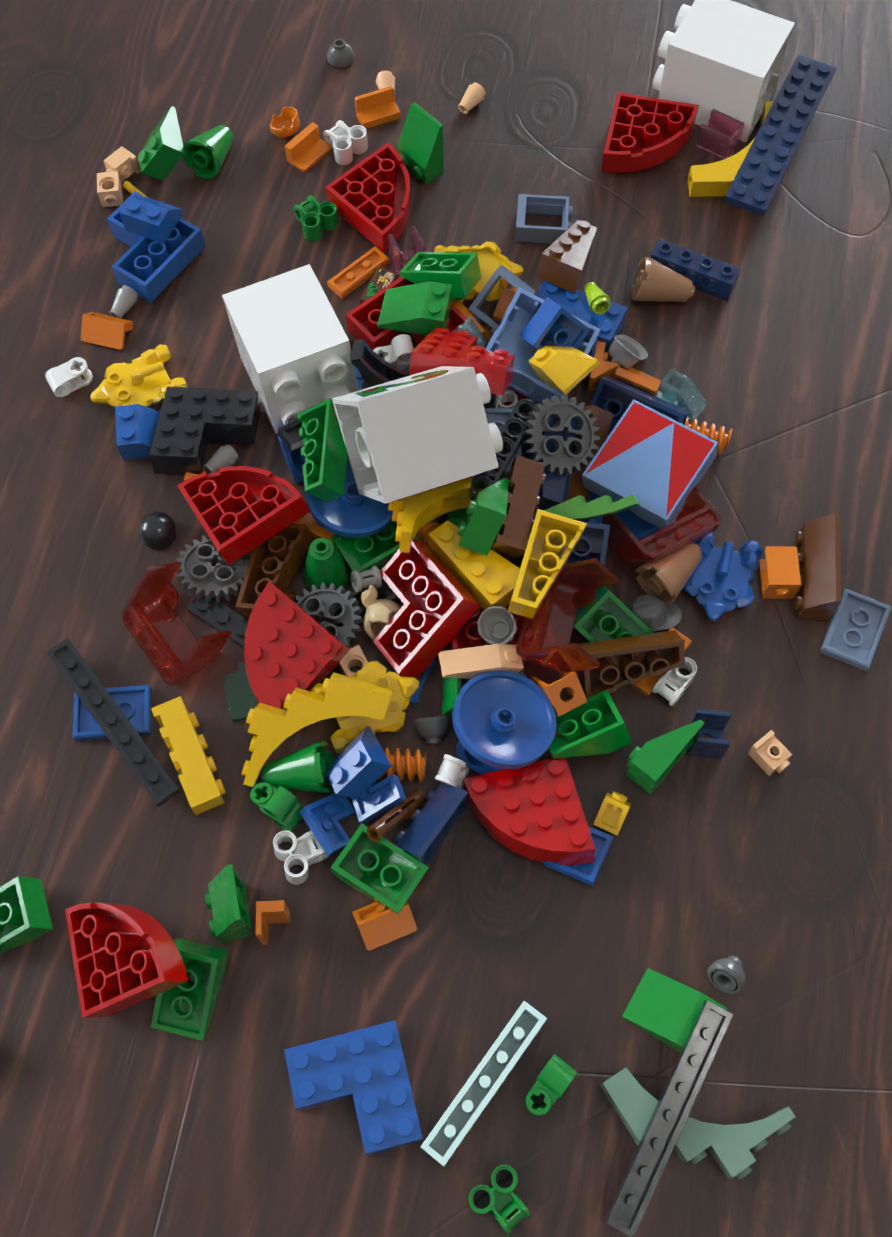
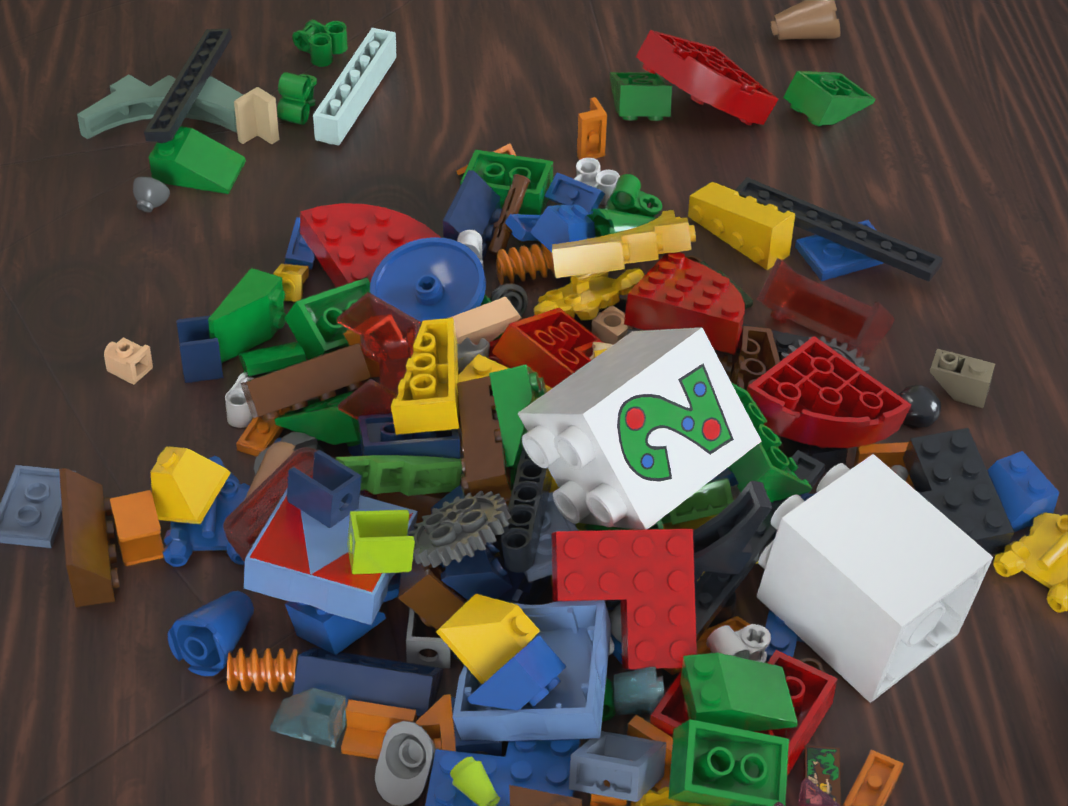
camera: 160 degrees right, 20 degrees down
(107, 533) = (963, 376): none -> dark tan slope
(228, 906) = (631, 128): green slope -> none
(365, 1067) = (461, 78): blue brick -> none
(597, 1052) = (256, 116): none -> tan panel
(622, 413) = (380, 542): none -> lime piece
(648, 713) = (271, 358): none -> green slope
(652, 463) = (322, 494): none -> dark blue piece
(734, 470) = (211, 632): none -> blue cone
(738, 581) = (185, 485): none -> yellow slope

